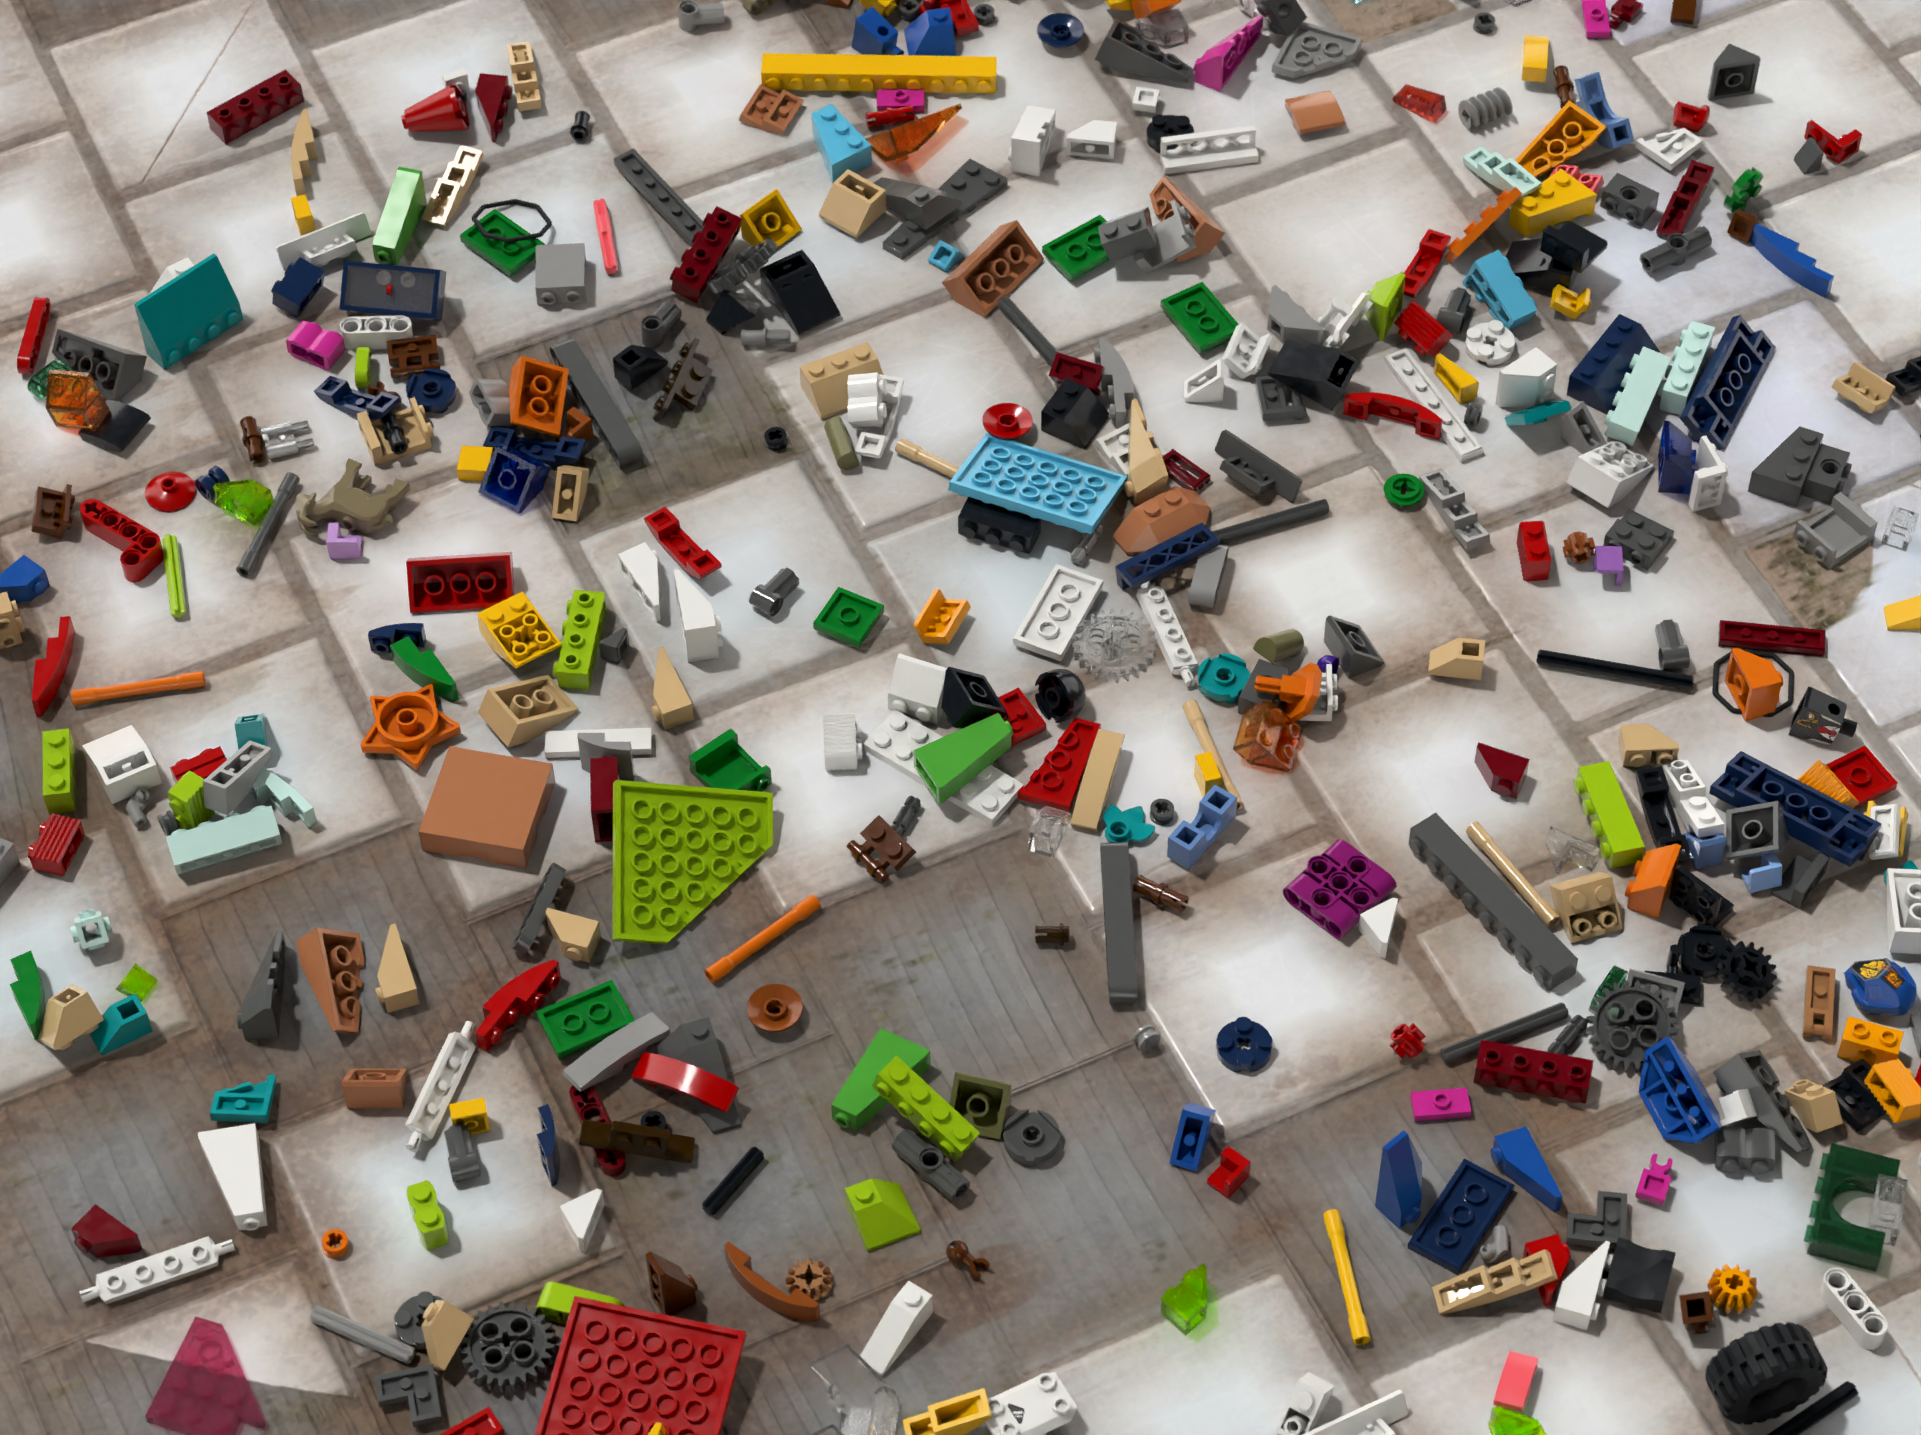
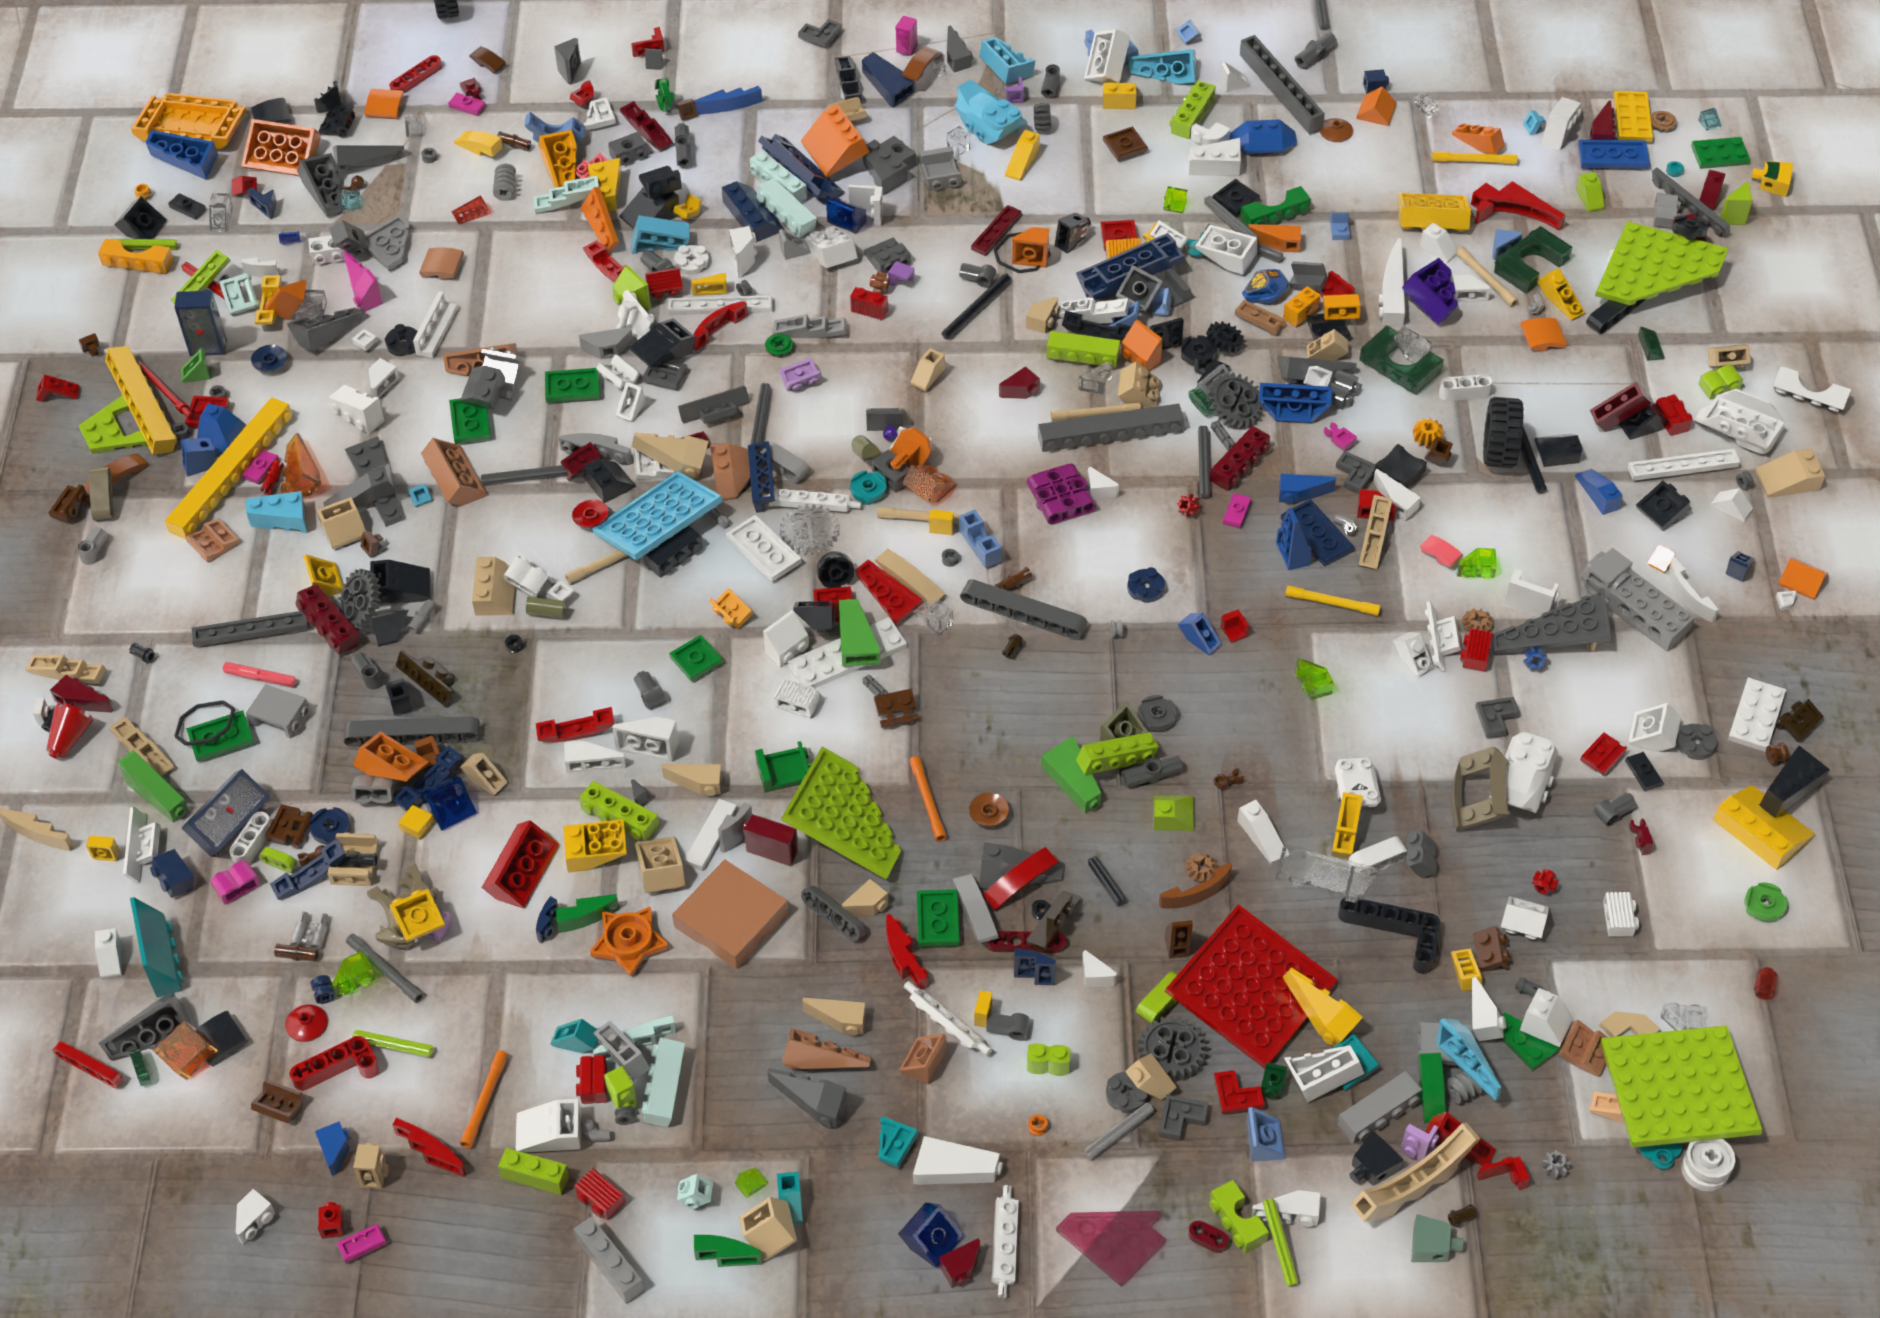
camera: 65 degrees left, 0 degrees up
(132, 1187) = (931, 1233): none -> clear blue slope
(330, 511) = (416, 915): none -> yellow plate
(844, 244) = (370, 543): none -> reddish brown tile
(1127, 823) = (949, 579): teal plate -> none
(1365, 529) = (799, 373): none -> lavender bracket
(1538, 413) = (768, 256): teal plate -> none
(1792, 395) = (834, 141): none -> orange slope

